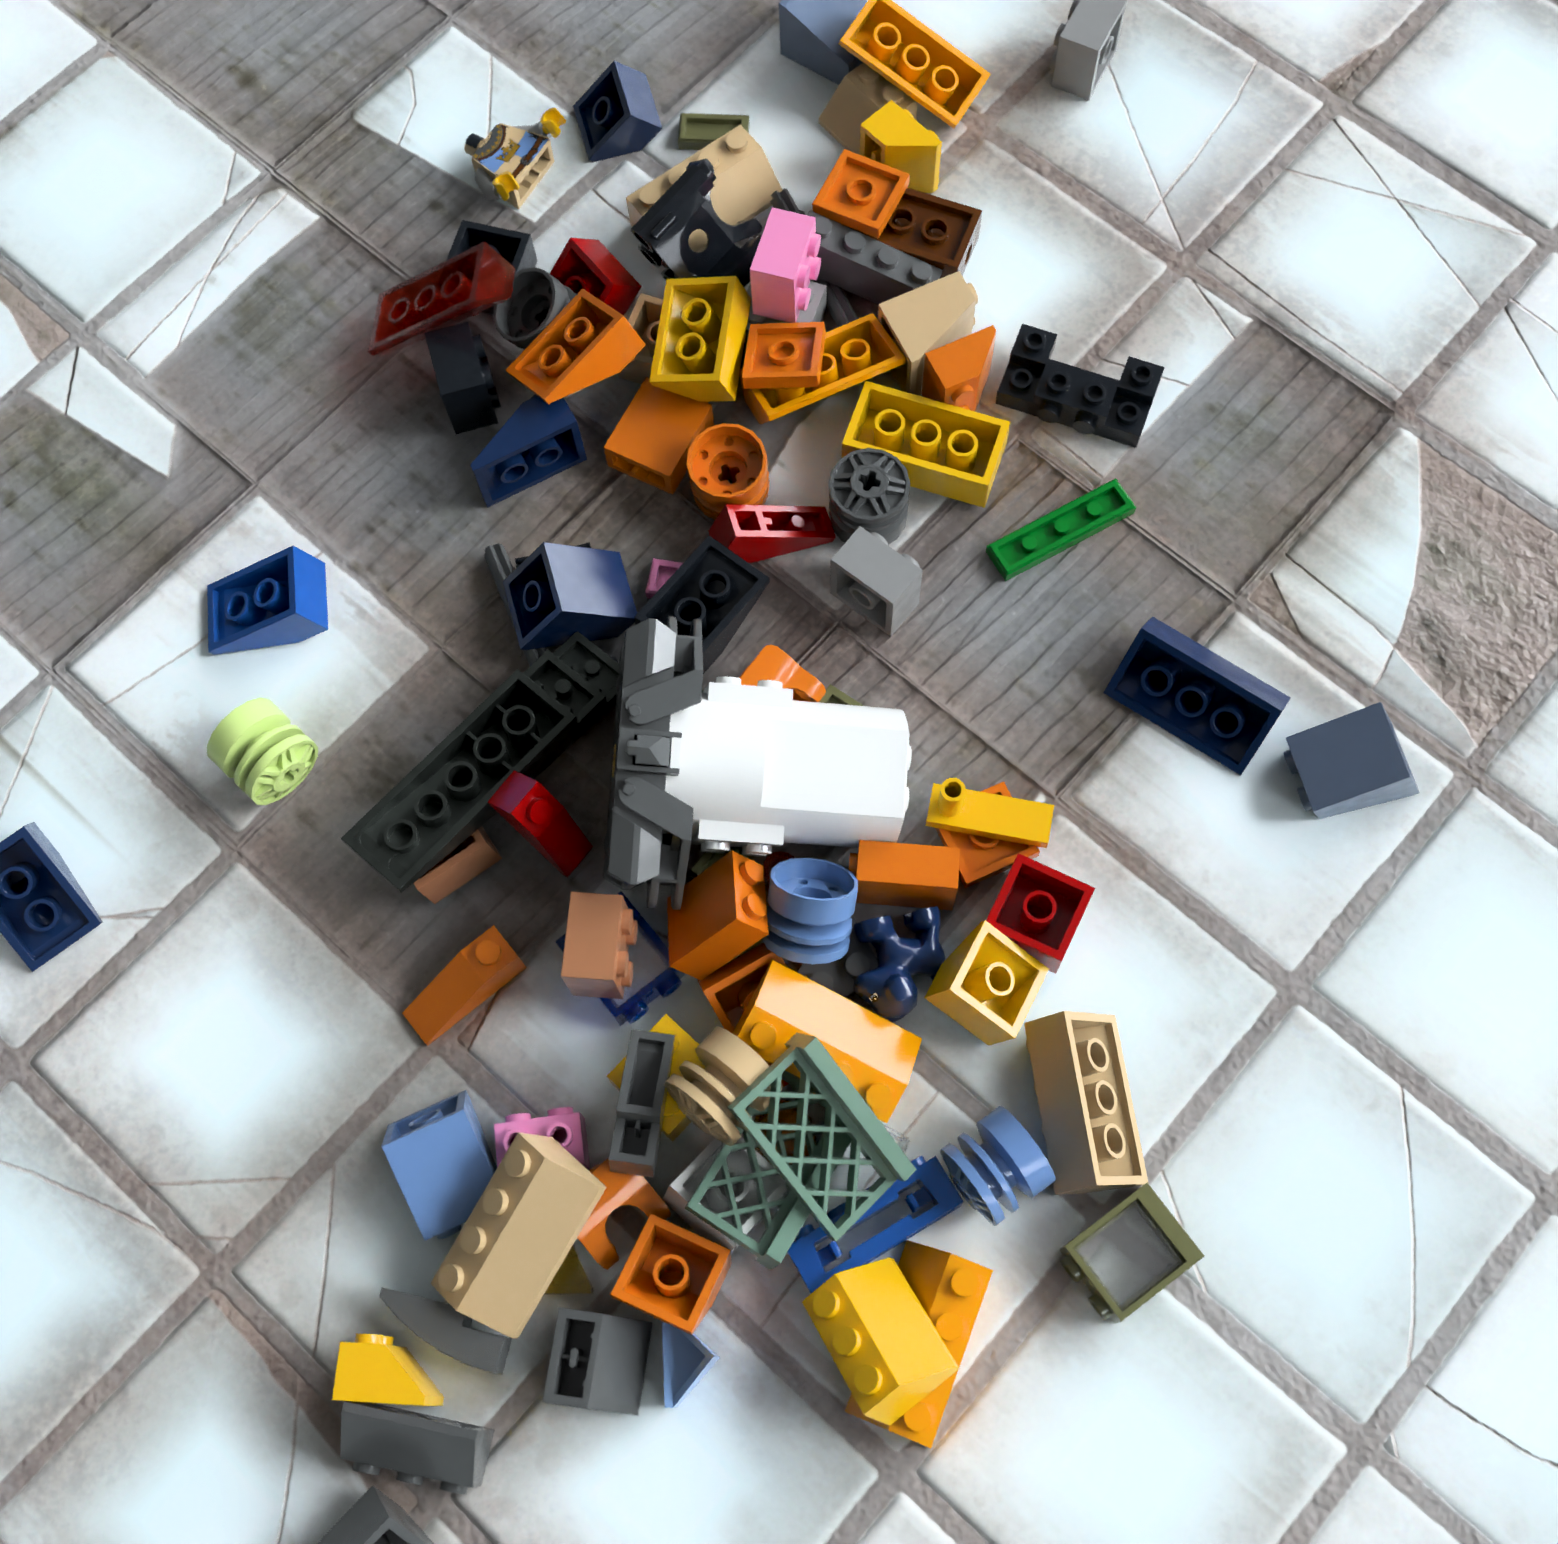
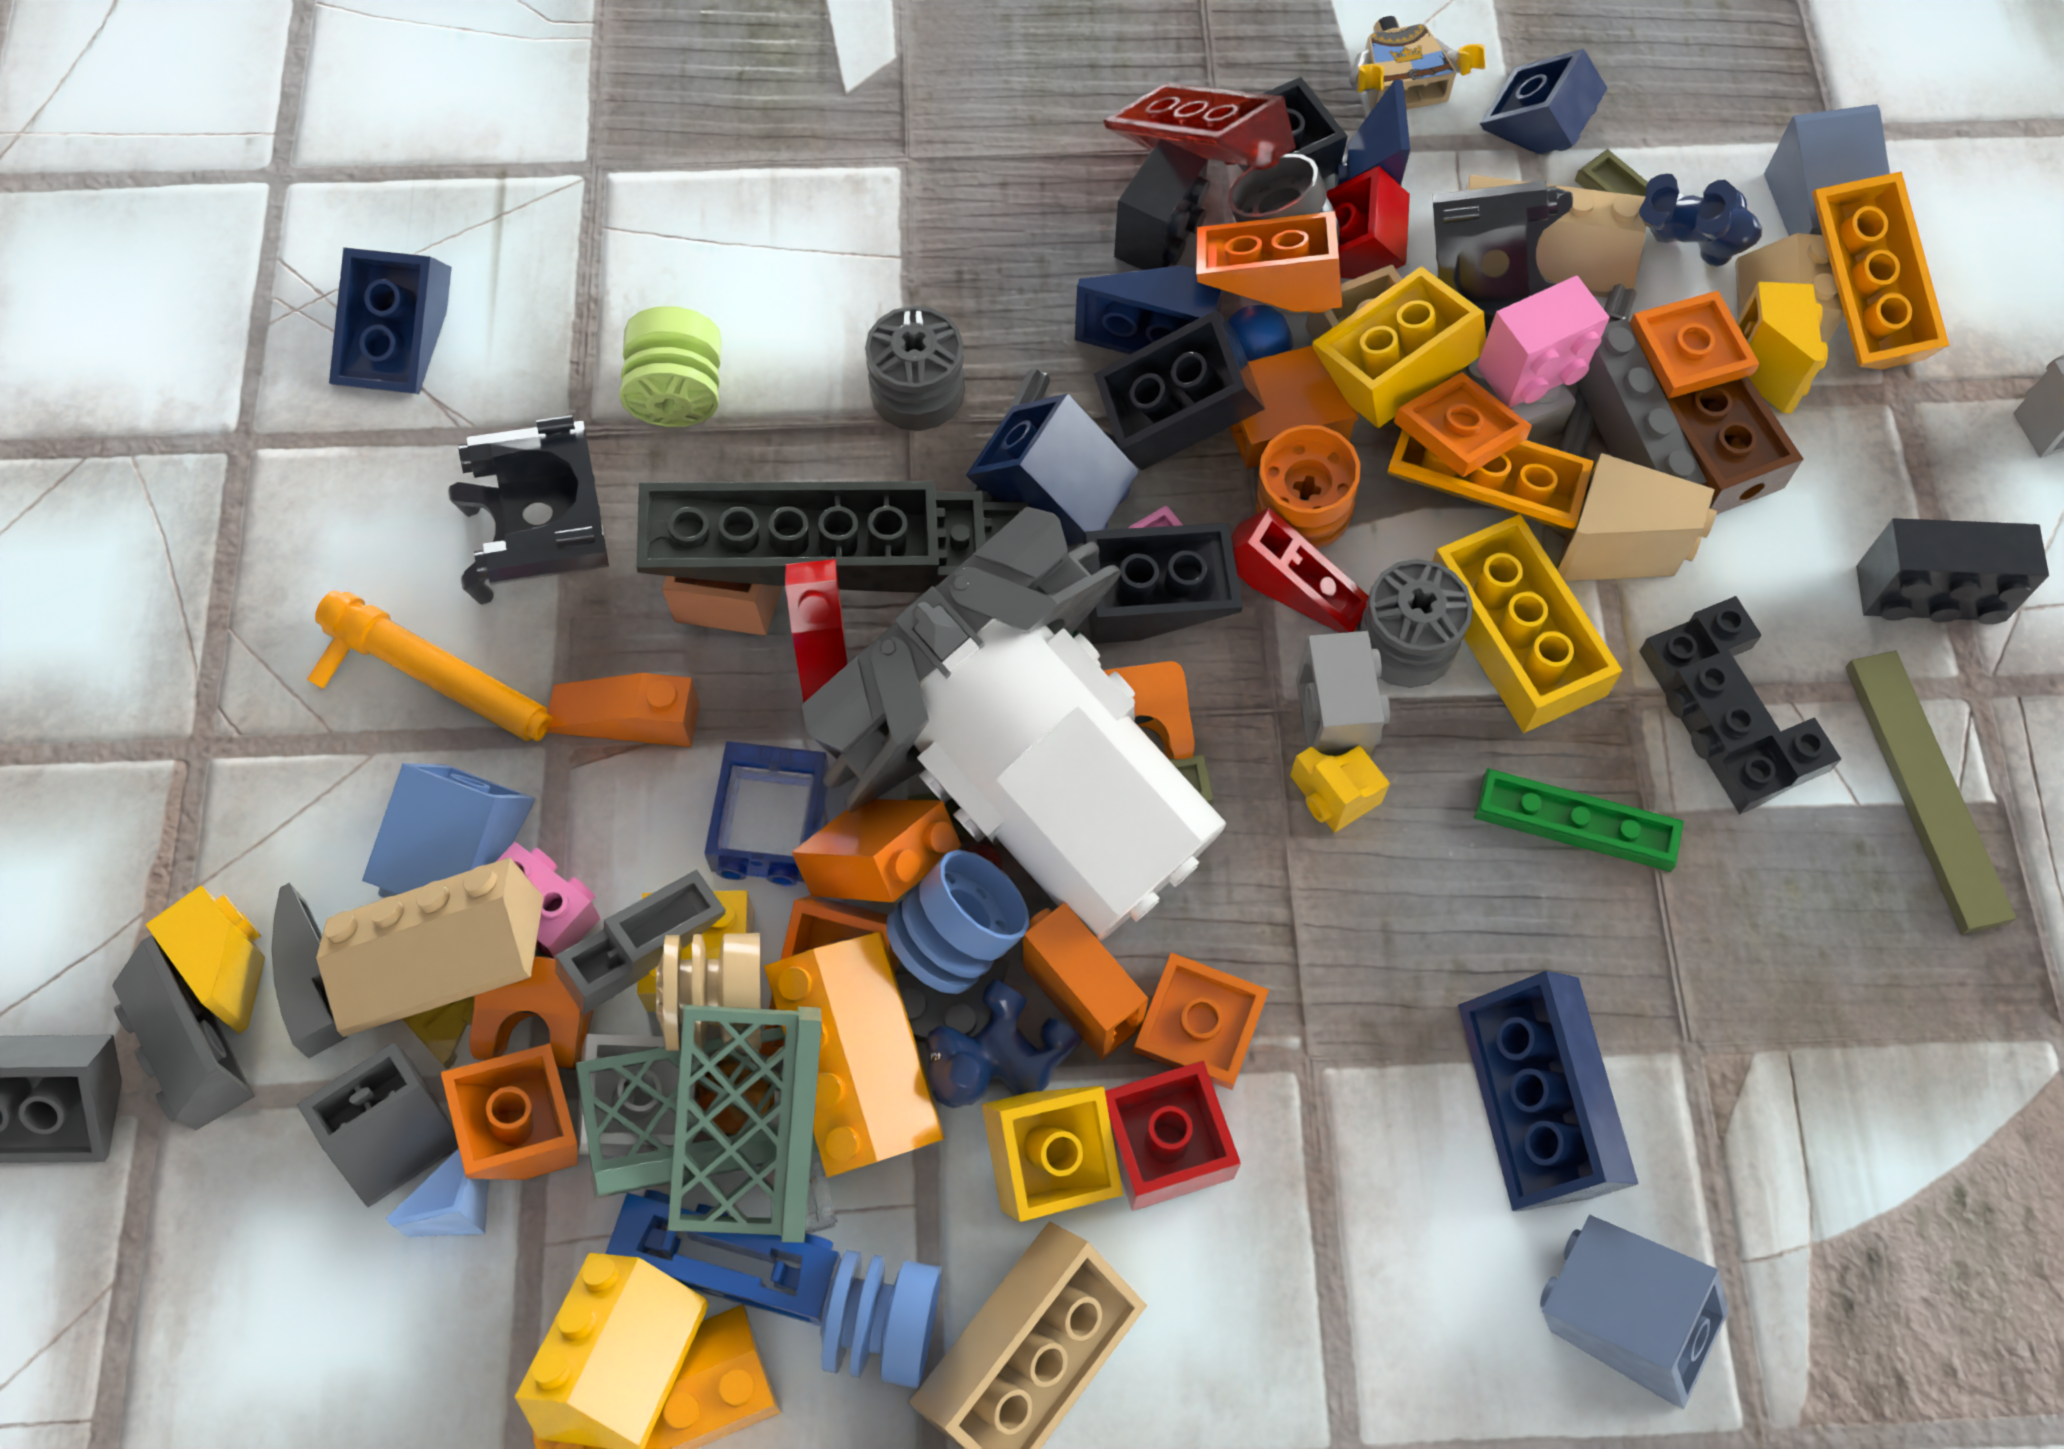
camera: 40 degrees right, 5 degrees down
(250, 891) = (531, 467): none -> black piece
(250, 1093) = (373, 632): none -> light orange cylinder
(268, 603) = (810, 258): blue slope -> none
(417, 611) = (915, 367): none -> dark grey wheel
(552, 221) = (1379, 140): none -> dark blue slope
(596, 482) = (1178, 390): none -> black brick
(598, 408) = (1261, 331): none -> blue hair
(598, 945) = (745, 771): nougat brick -> none
(795, 109) = (1714, 221): none -> dark blue animal
(921, 631) = (1339, 786): none -> yellow brick
(959, 369) = (1627, 586): orange slope -> none
(989, 814) = (1220, 1004): yellow piece -> none
(1115, 207) = (1951, 570): none -> black brick
(1216, 344) = (1930, 793): none -> olive tile

